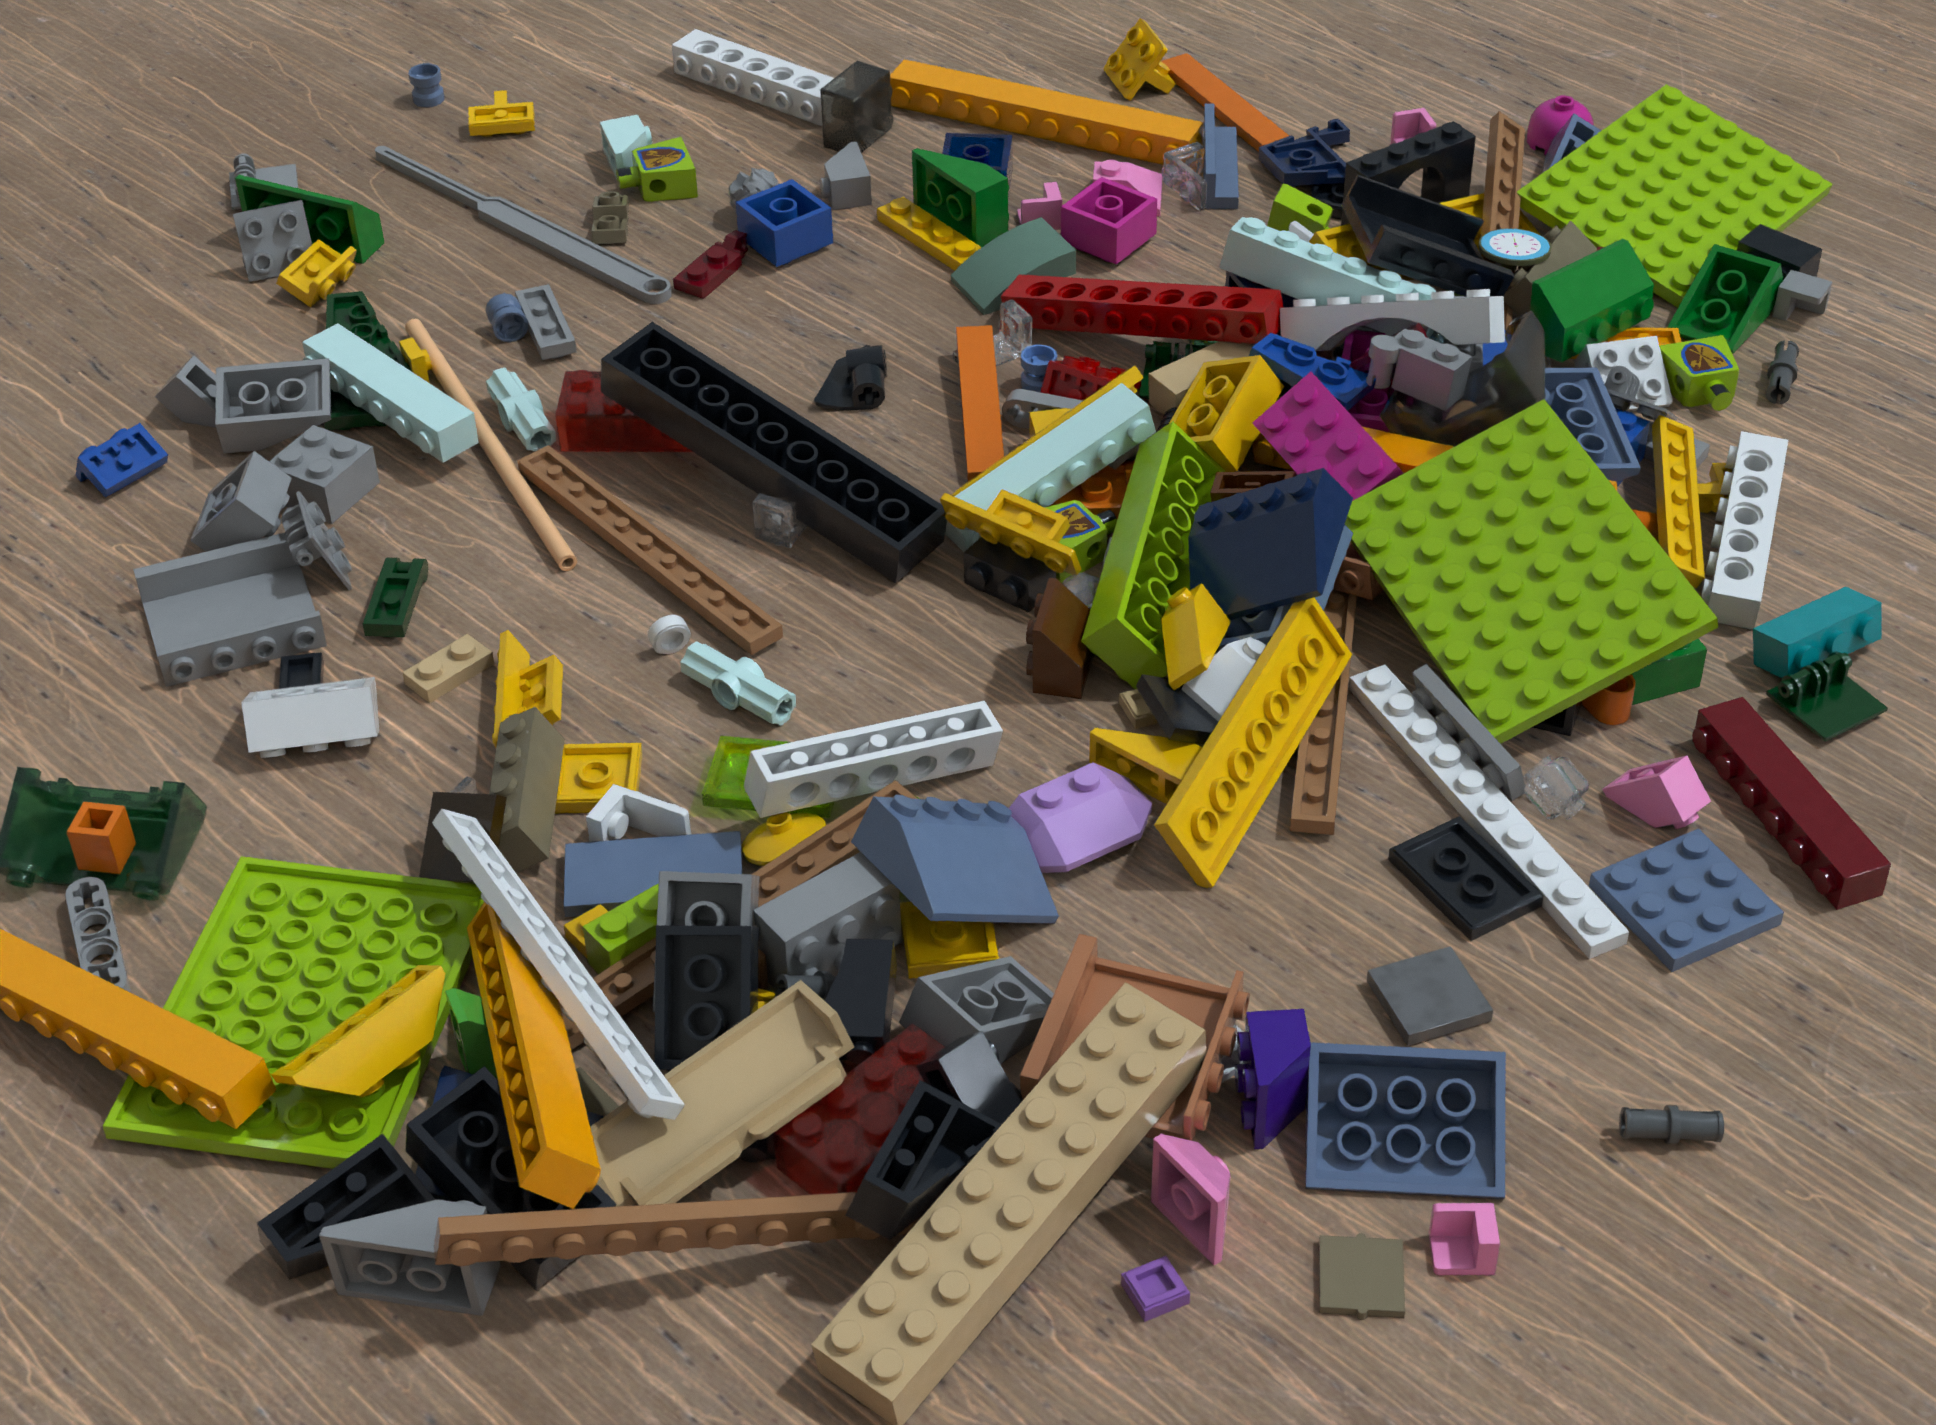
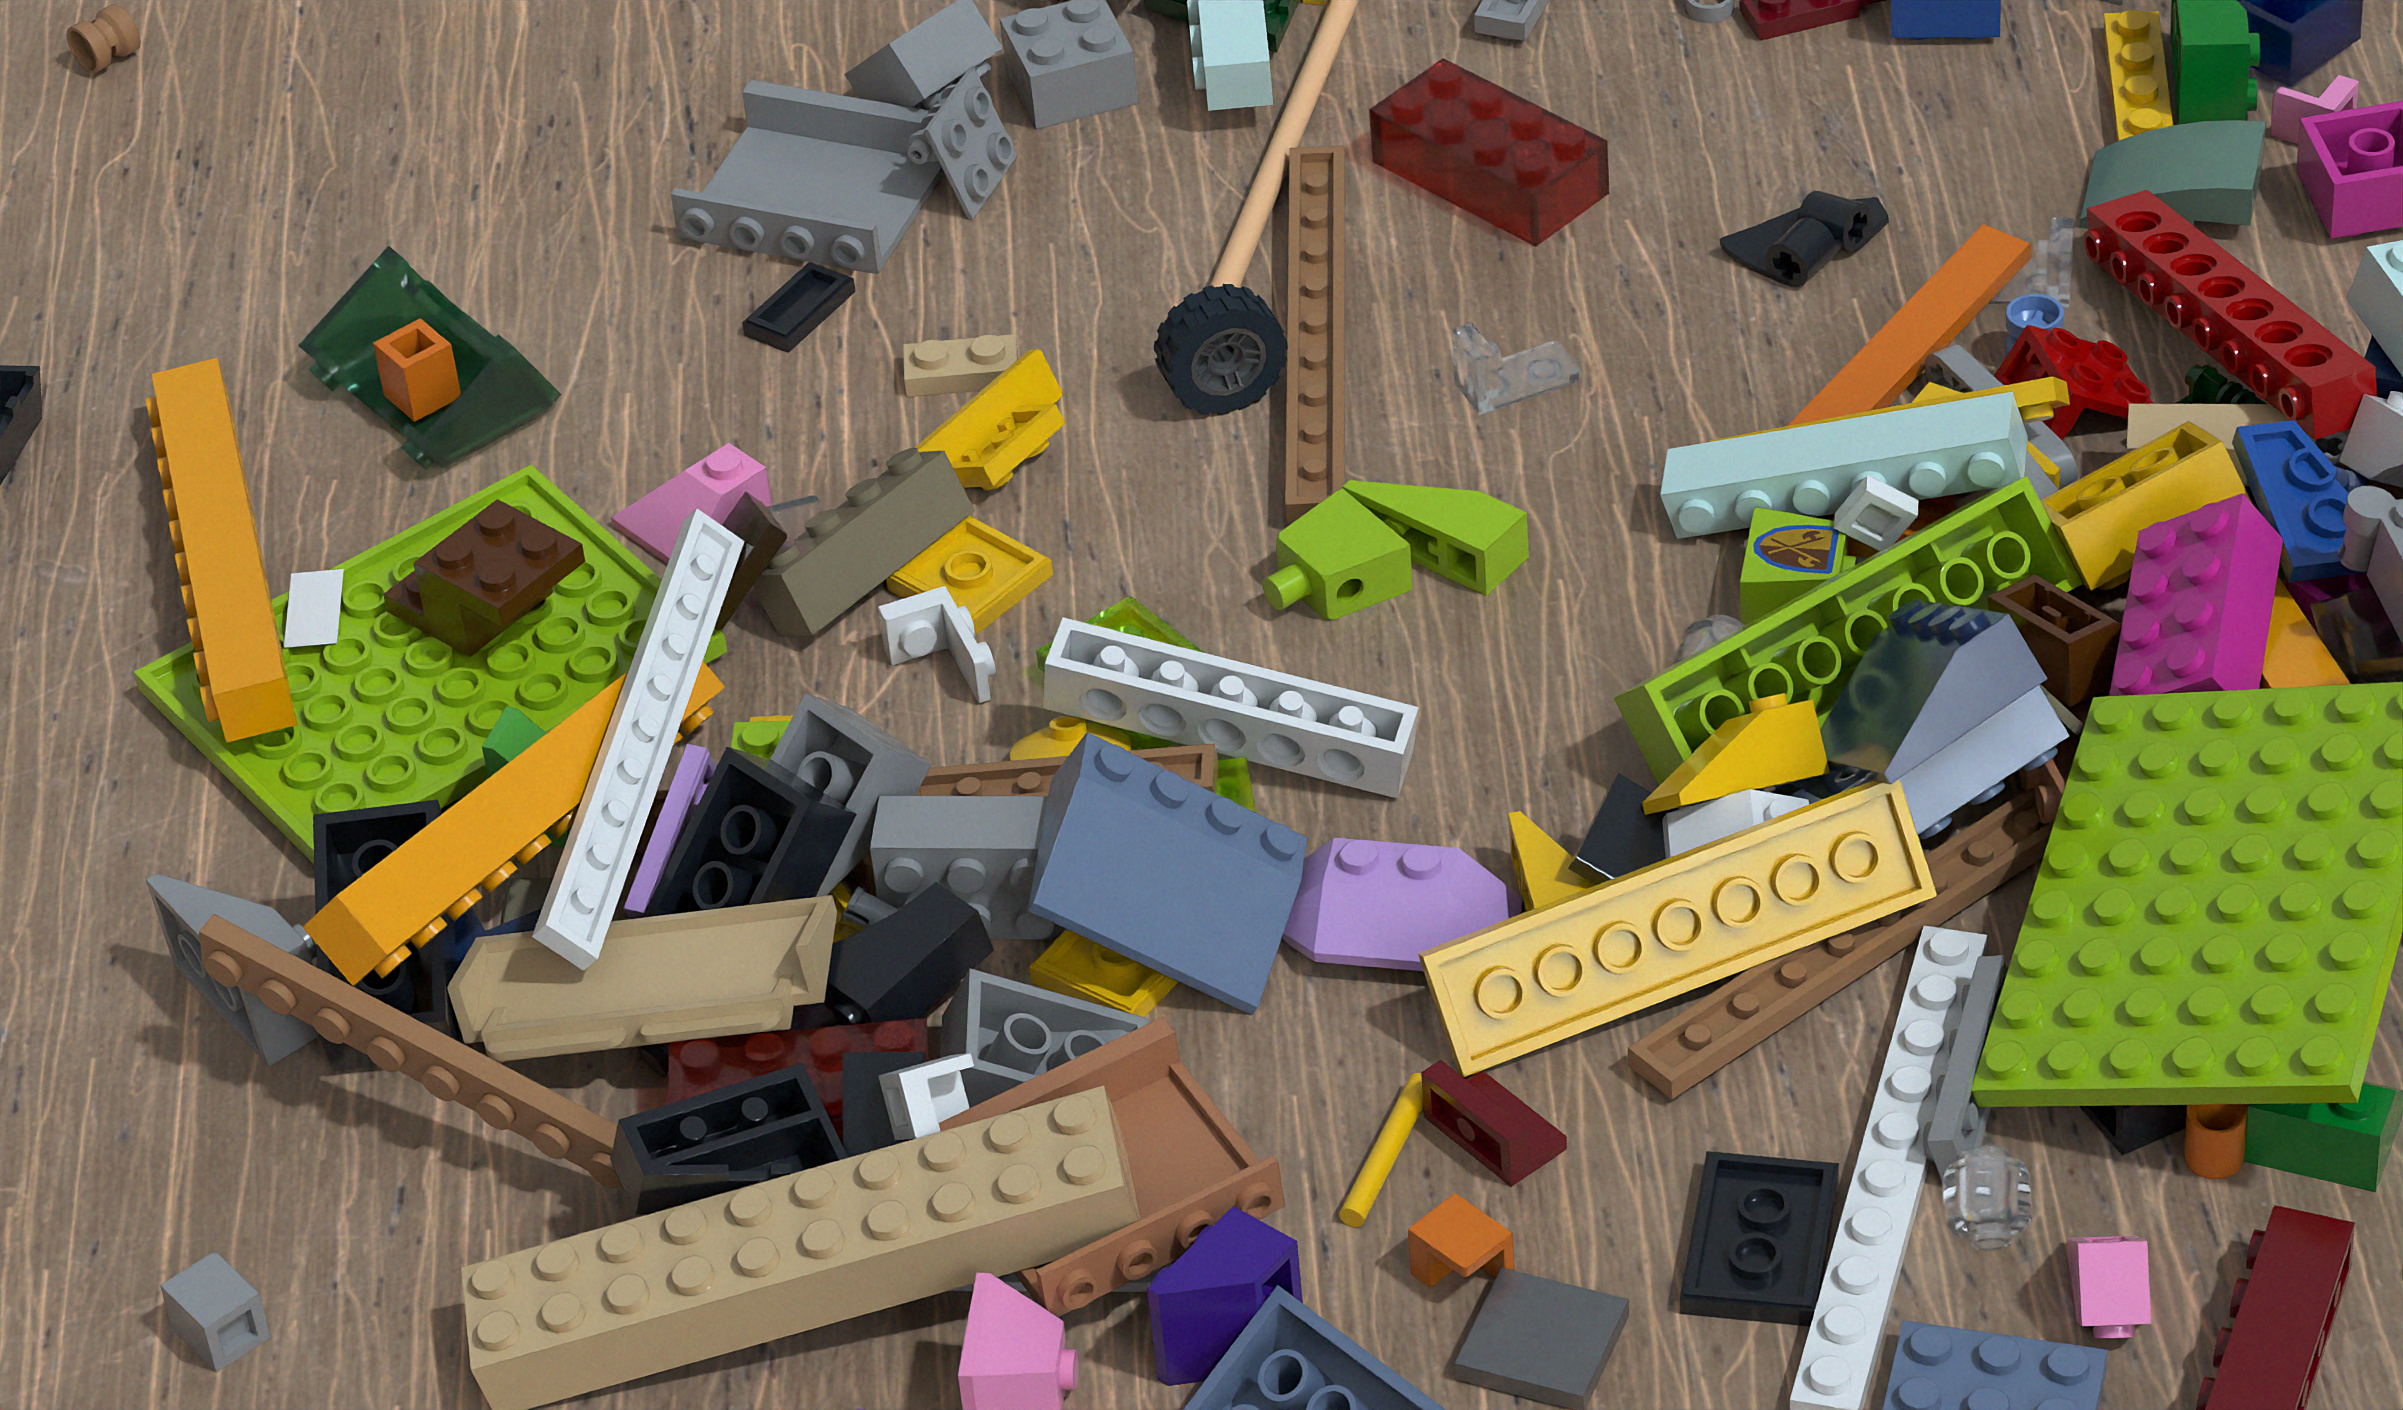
camera: 45 degrees right, 0 degrees up
(97, 943) = (314, 482): light grey beam -> none
(192, 1008) = (313, 608): none -> white sticker
(311, 716) = (756, 344): white slope -> none
(320, 921) = (484, 577): none -> reddish brown bracket
(359, 1187) = (250, 861): black wedge -> none
(373, 1039) = (404, 723): yellow wedge -> none
(380, 825) = (709, 485): none -> bright pink slope
(395, 597) = (993, 250): dark green plate -> none
(520, 410) = (1367, 81): light aqua piece -> none
(616, 990) = (679, 806): none -> lavender tile
(622, 577) = (1220, 349): none -> black wheel
(624, 868) = (910, 702): sand blue tile -> none
(669, 634) = (1217, 448): white tile -> none
(738, 683) = (1224, 546): light aqua piece -> none
(774, 451) = (1541, 280): black brick -> none
(816, 655) = (1338, 560): none -> lime torso
(849, 613) = (1451, 530): none -> lime slope
(1005, 573) = (1678, 570): black brick -> none
(1007, 1058) = (925, 1095): none -> white panel
(1018, 524) = (1716, 521): yellow bracket -> none
(1058, 656) = (1594, 668): reddish brown slope -> none
(1094, 484) = (1876, 514): none -> white plate
(1222, 944) = (1383, 1154): none -> yellow bar
(1262, 903) = (1489, 1122): none -> dark red panel
(1339, 964) = (1459, 1240): none -> orange panel

